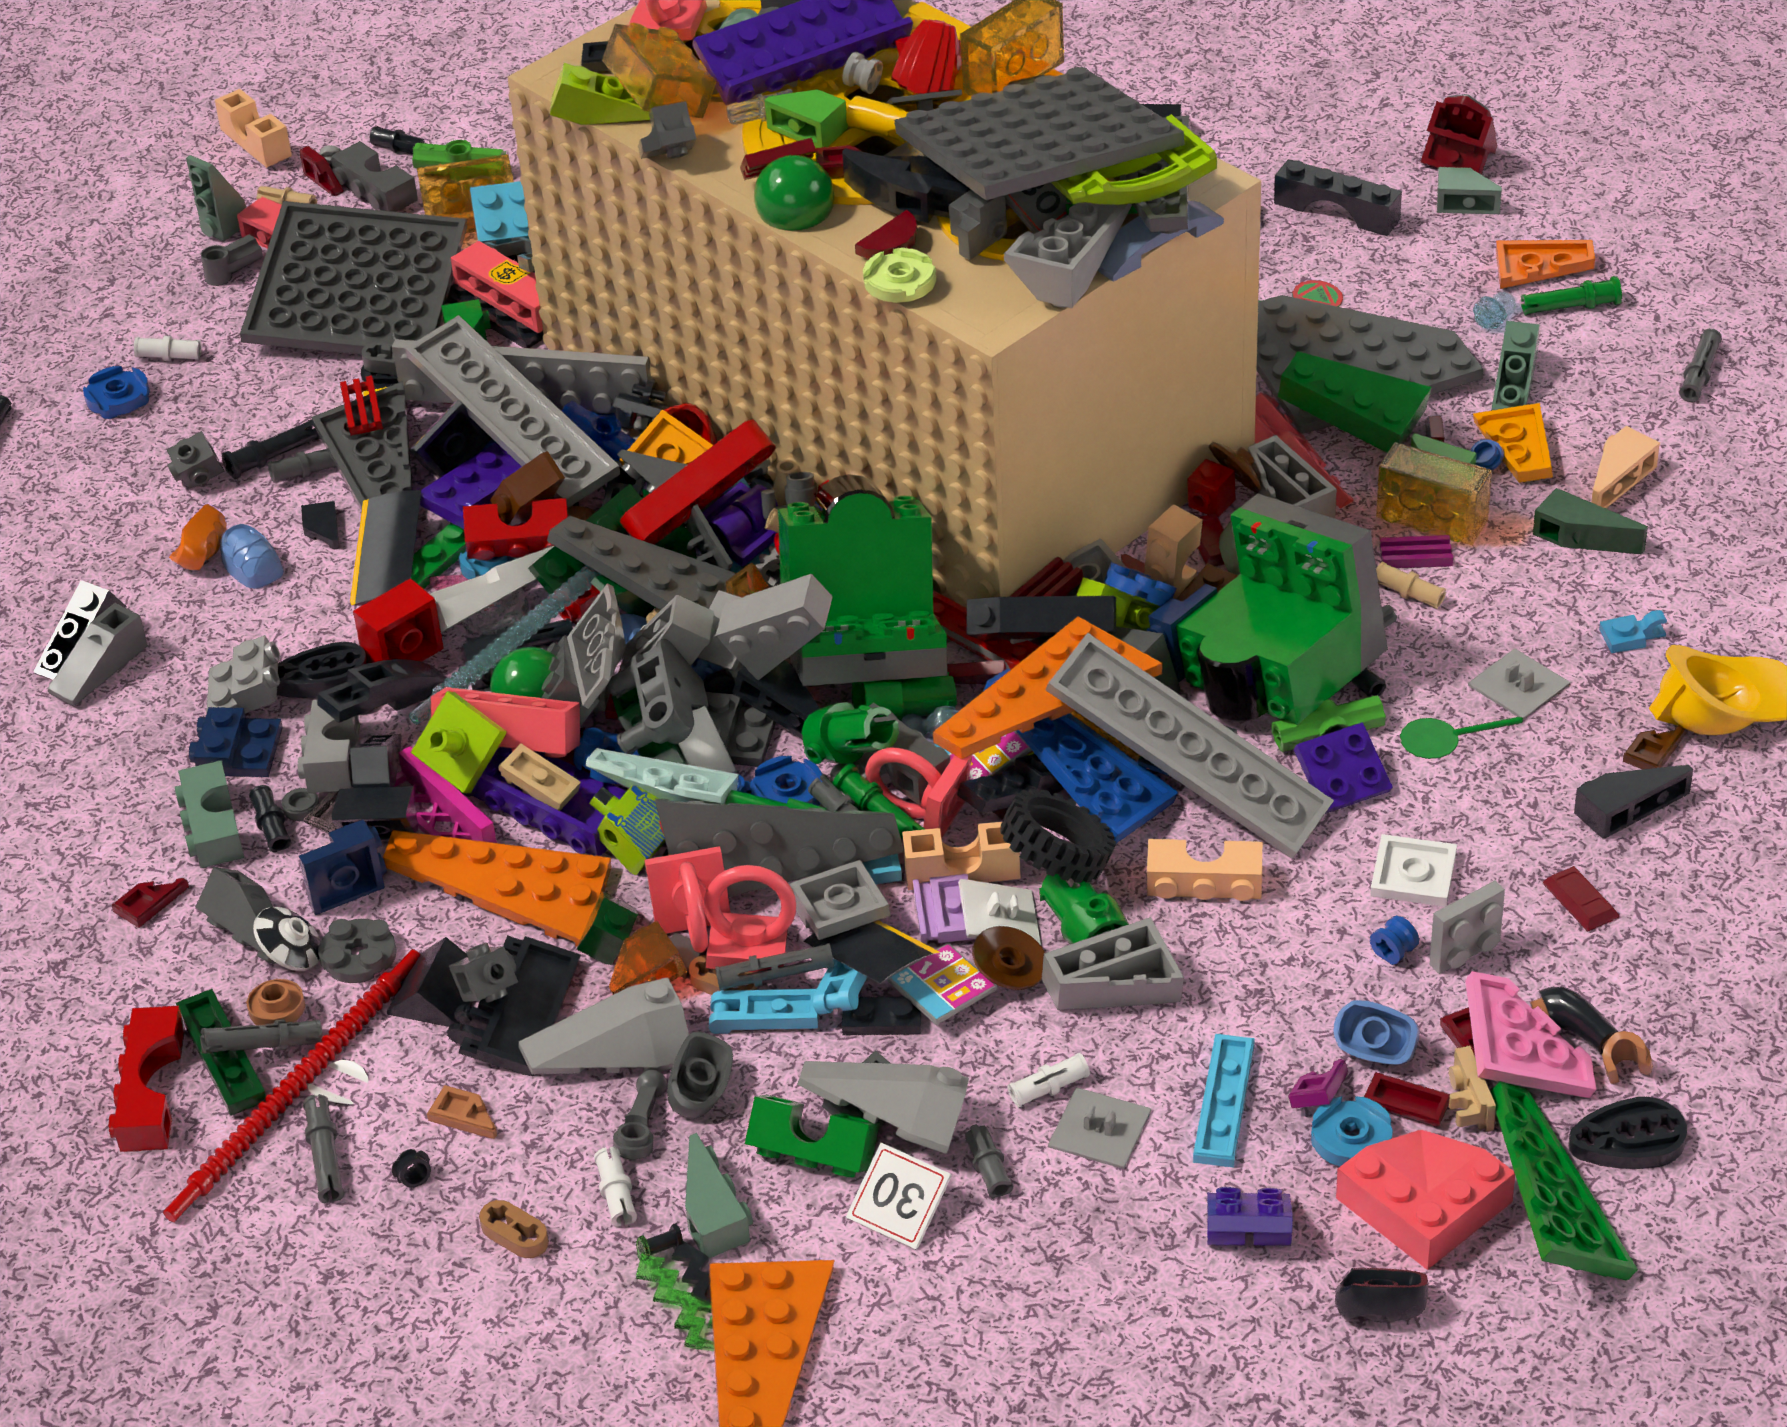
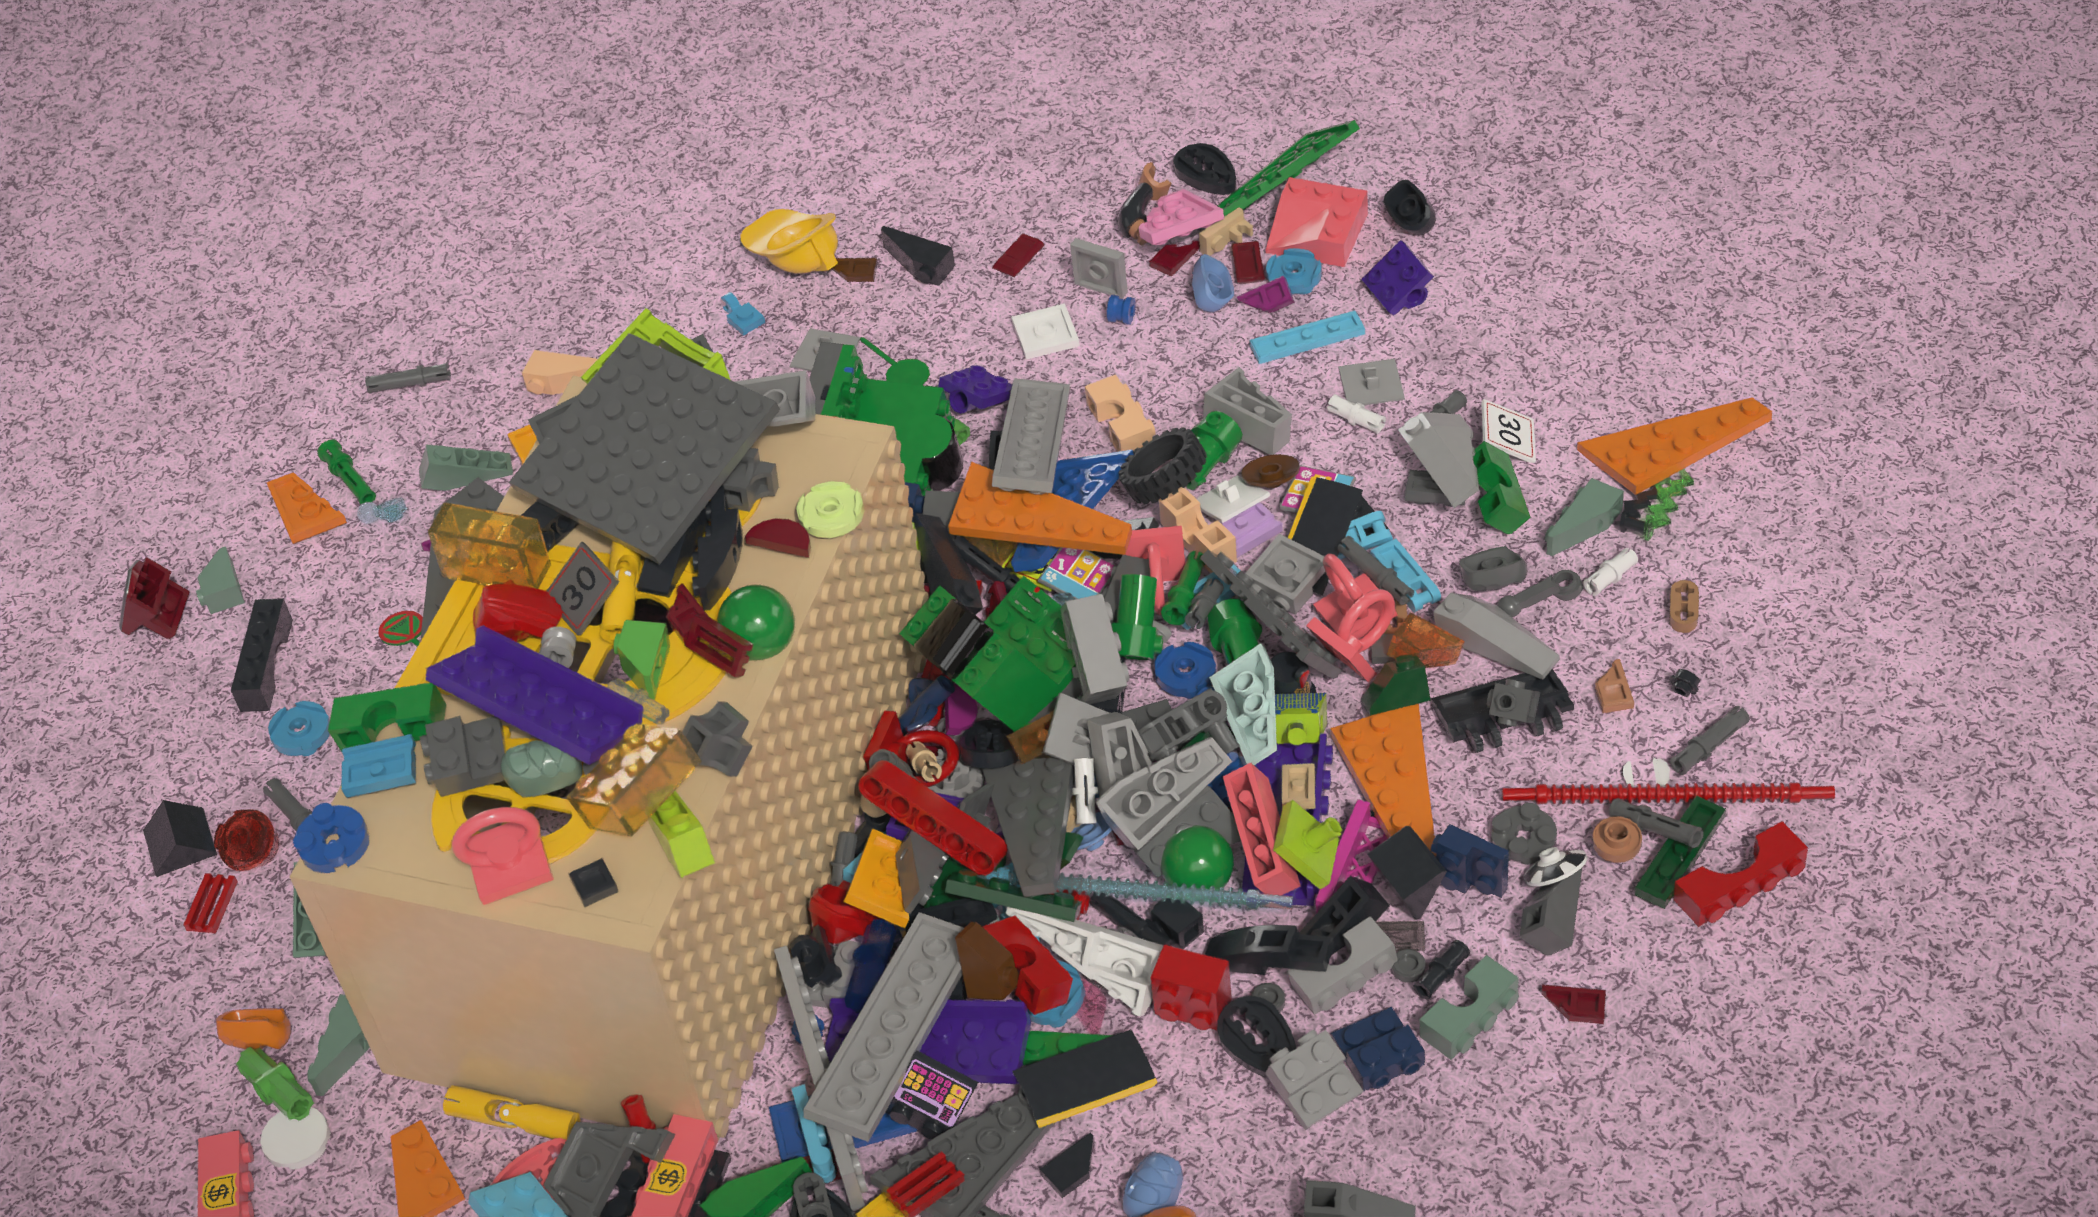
camera: 115 degrees left, 5 degrees up
(429, 988) = (1524, 764): black slope -> none

